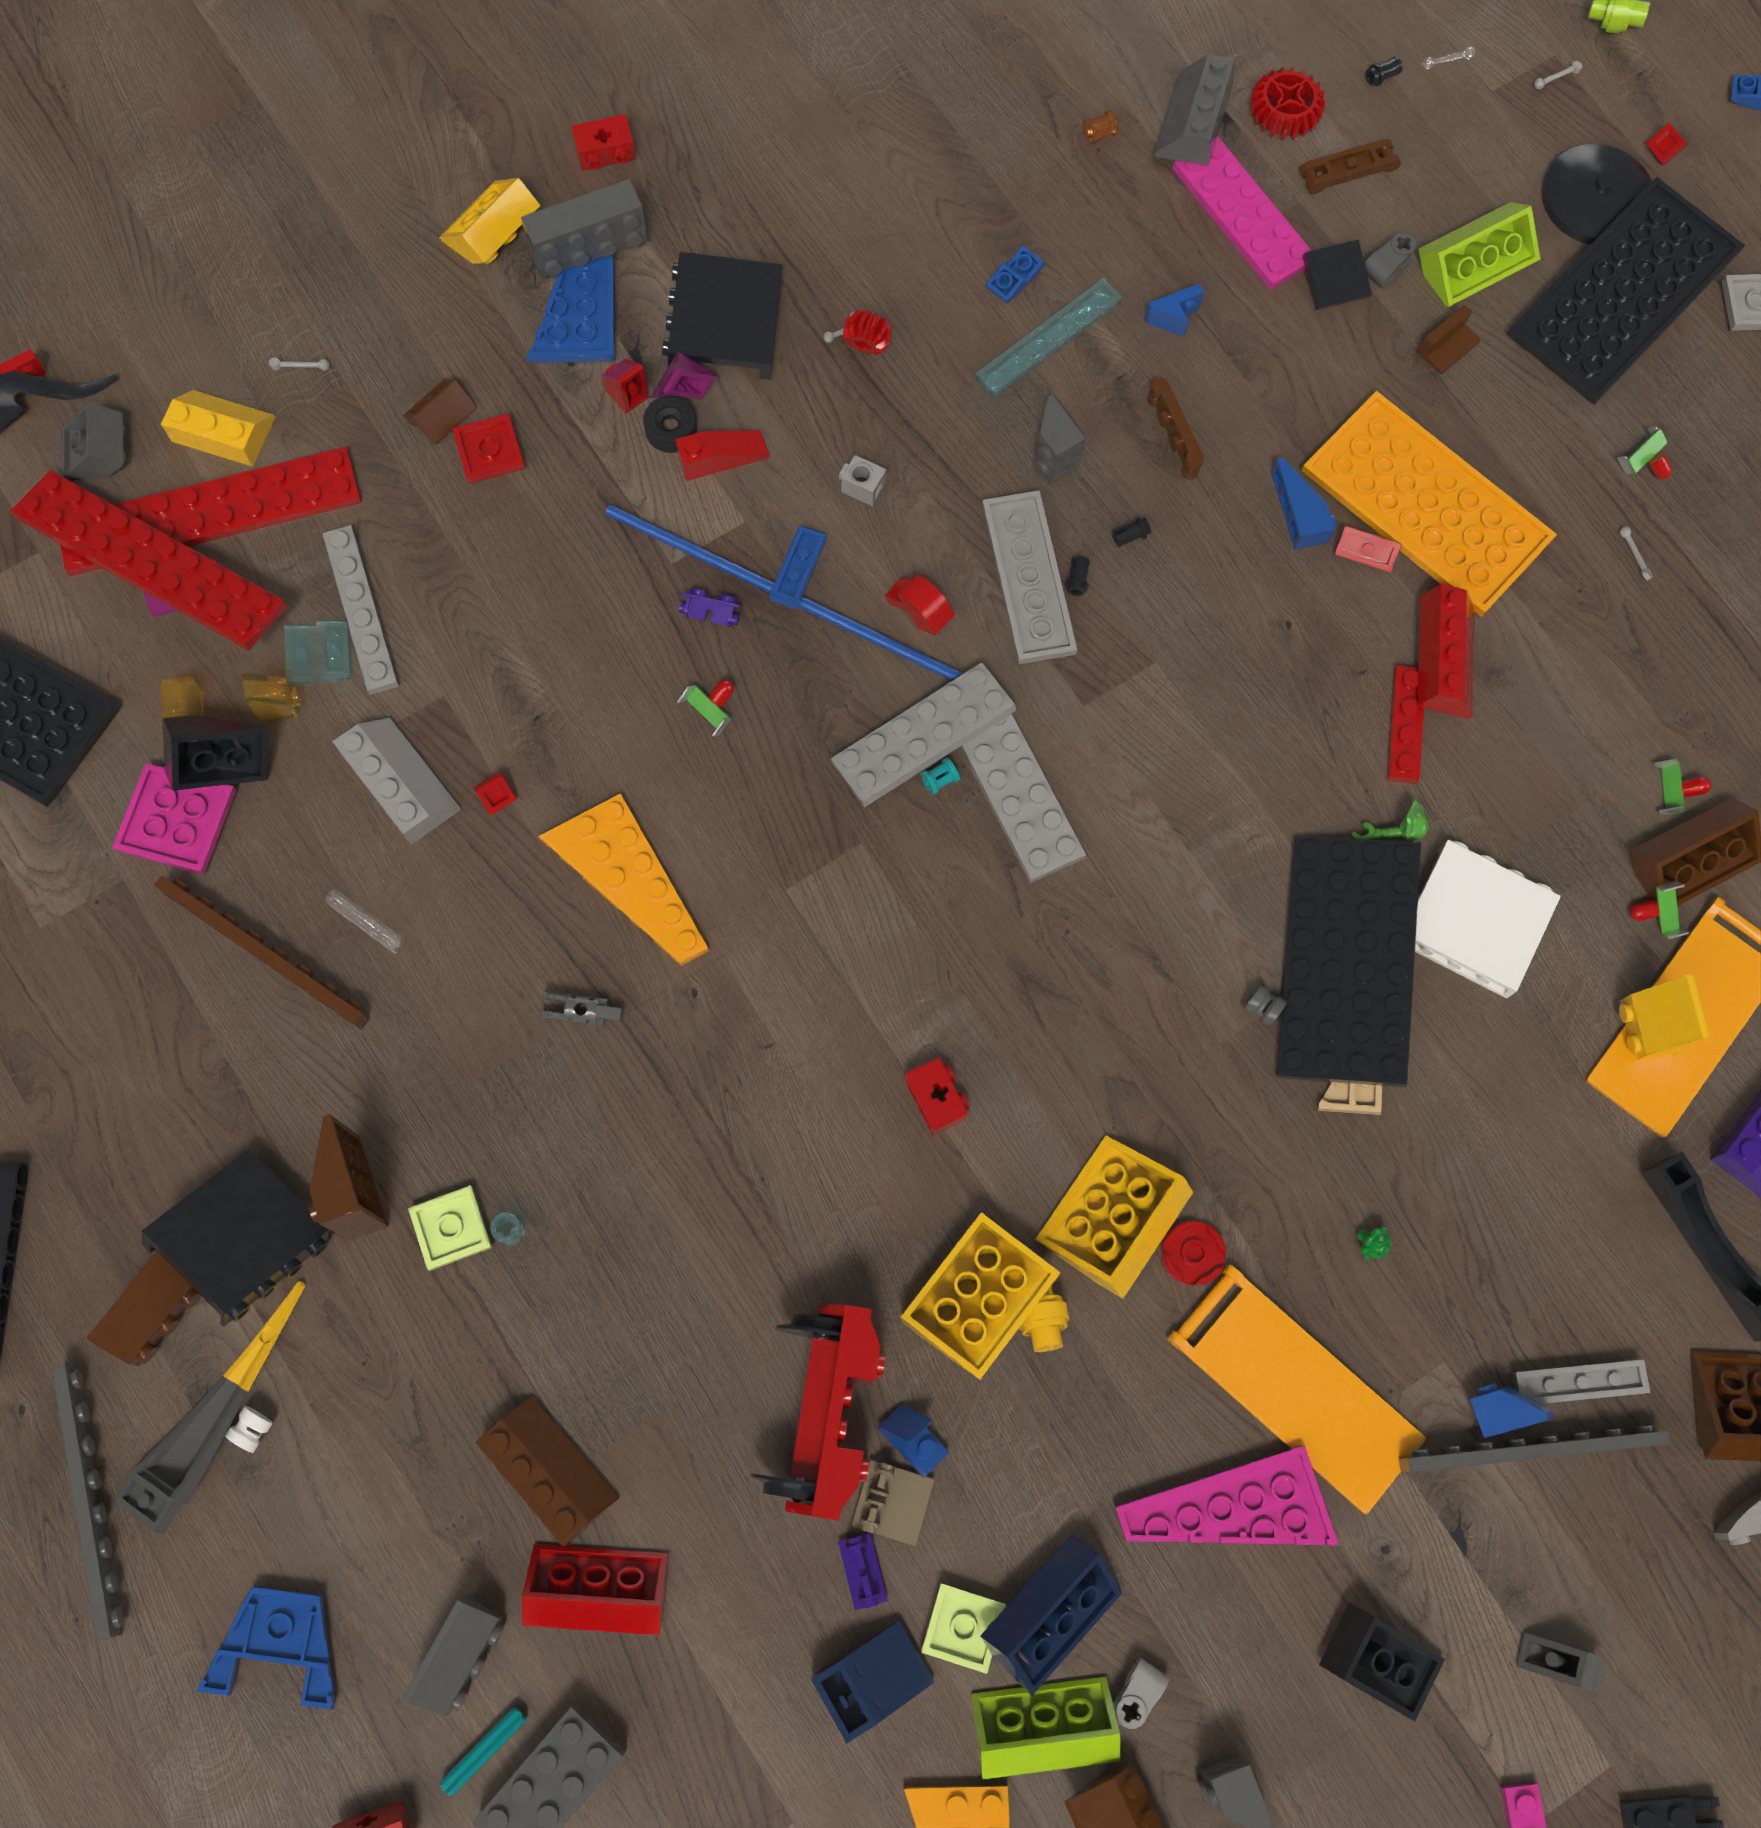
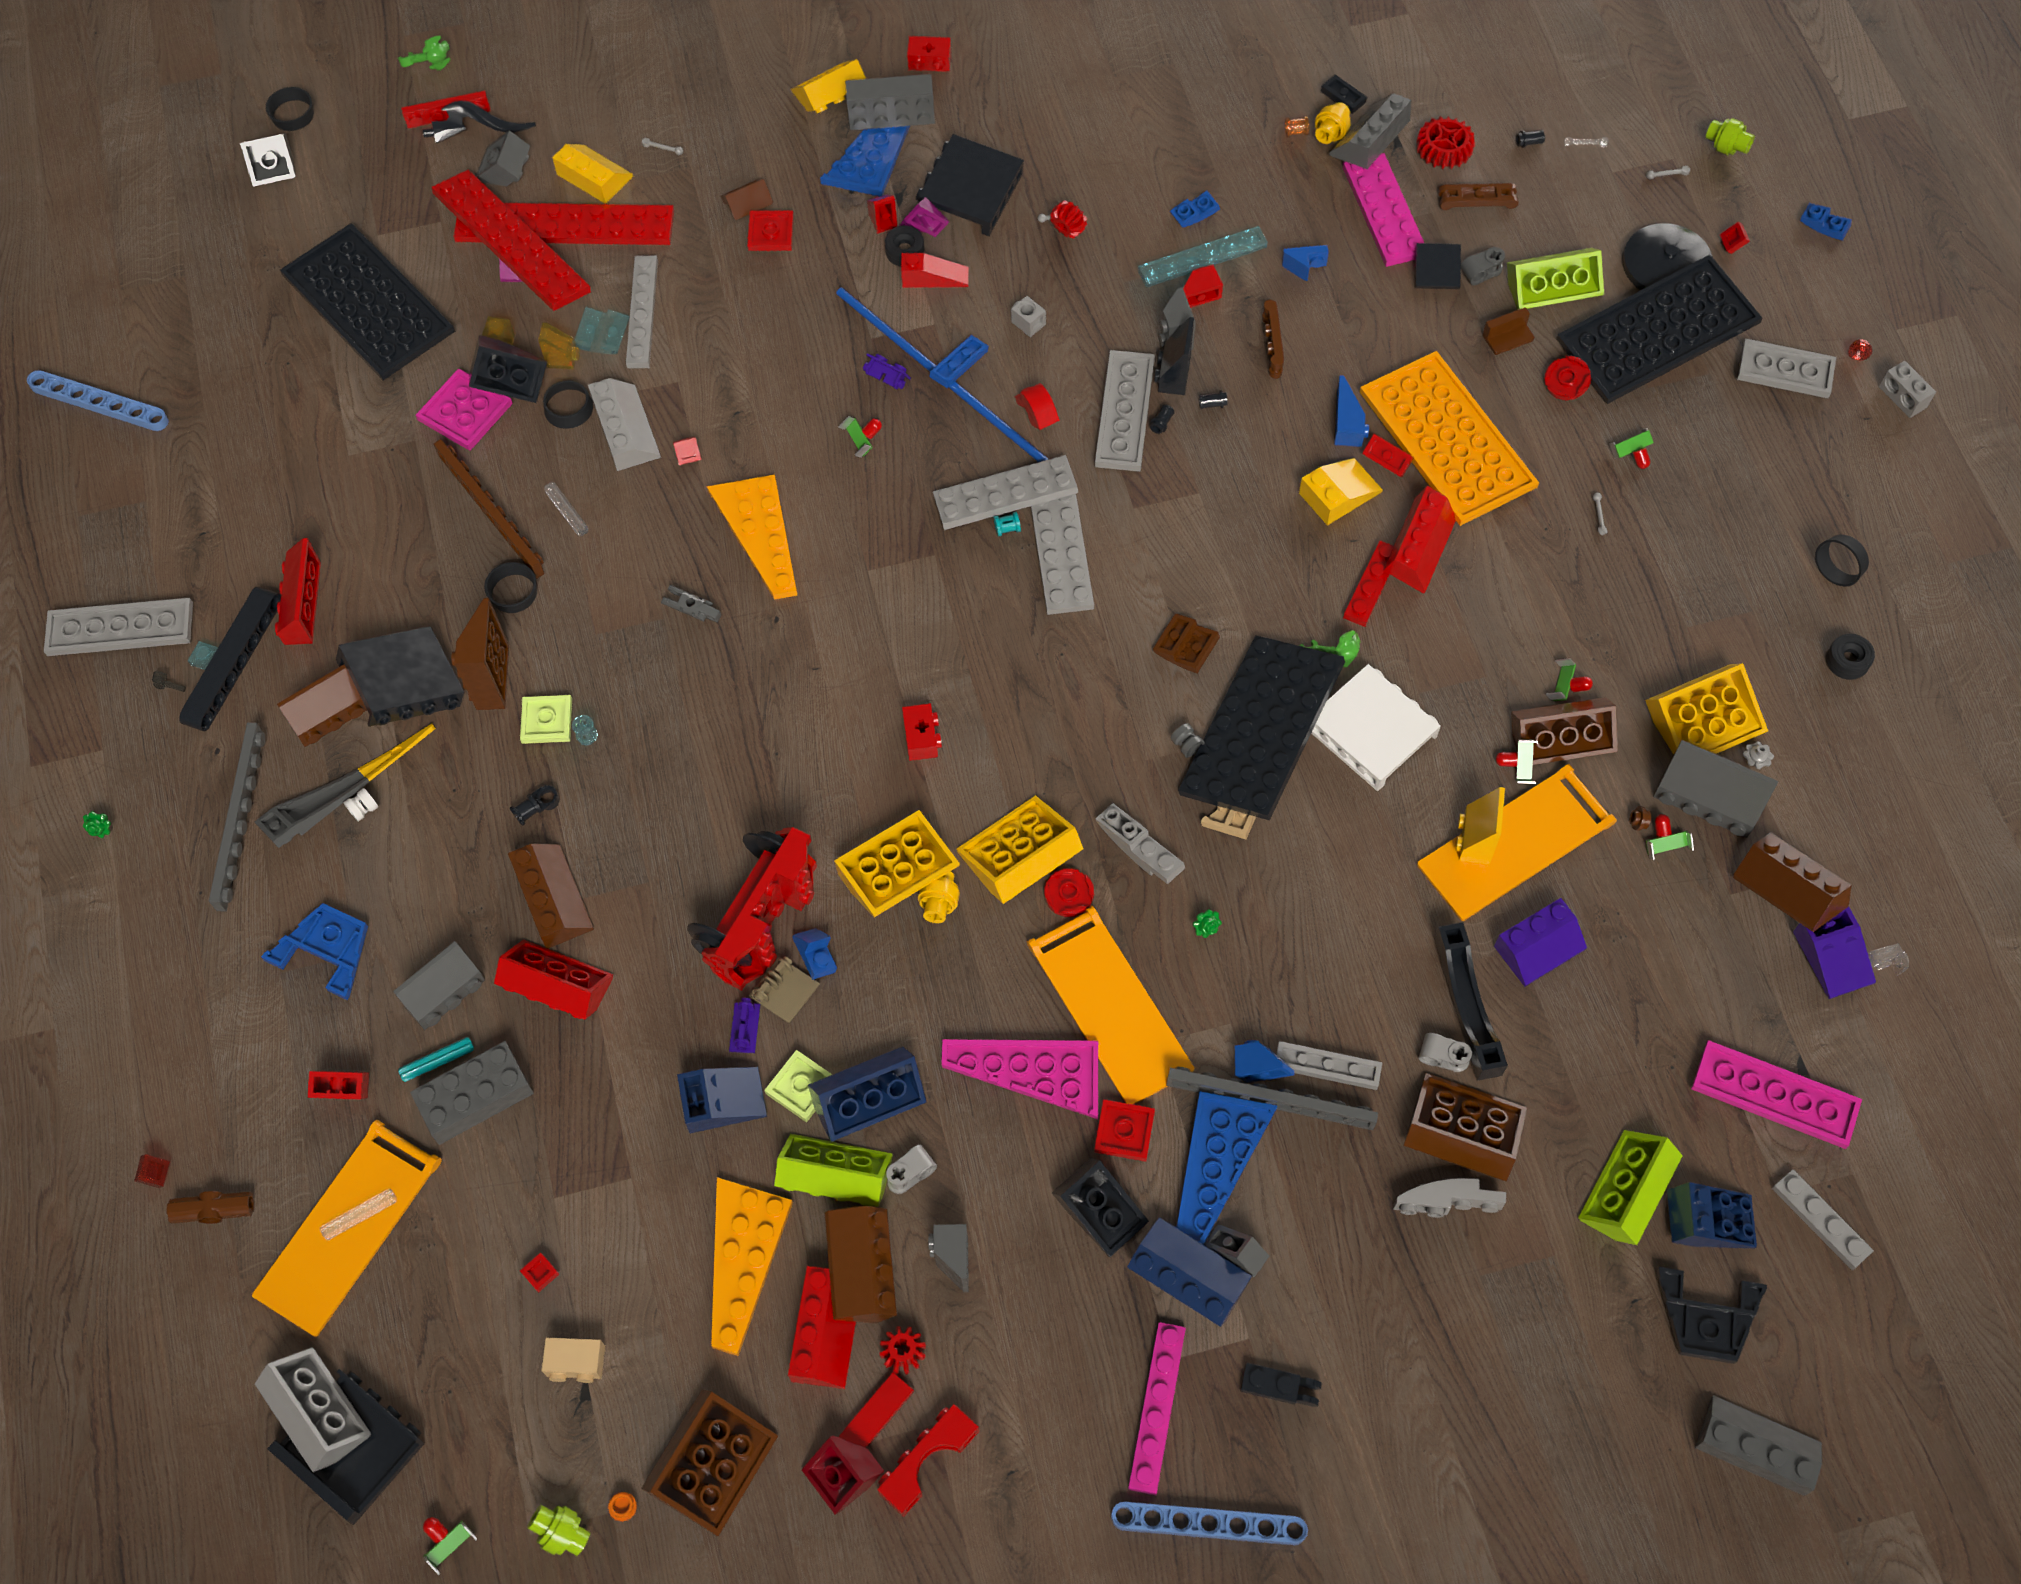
camera: 25 degrees right, 10 degrees down
(50, 1156) = (298, 594): none -> red slope
(312, 1038) = (506, 570): none -> black tyre
(324, 794) = (575, 419): none -> black tyre
(479, 1354) = (534, 804): none -> black connector
(1065, 377) = (1203, 286): none -> red slope
(1074, 492) = (1176, 360): none -> black slope
(1141, 67) = (1343, 92): none -> black plate
(1144, 112) = (1332, 123): none -> yellow piece
(1214, 872) = (1186, 643): none -> reddish brown slope
(1259, 1165) = (1138, 844): none -> light grey slope
(1324, 610) = (1338, 489): none -> yellow slope
(1375, 1551) = (1124, 1130): none -> red plate
(1496, 1541) = (1220, 1149): none -> blue wing
(1523, 1717) = (1189, 1271): none -> dark blue slope
(1540, 384) = (1567, 378): none -> red tile
(1708, 1321) = (1442, 1052): none -> light grey piece

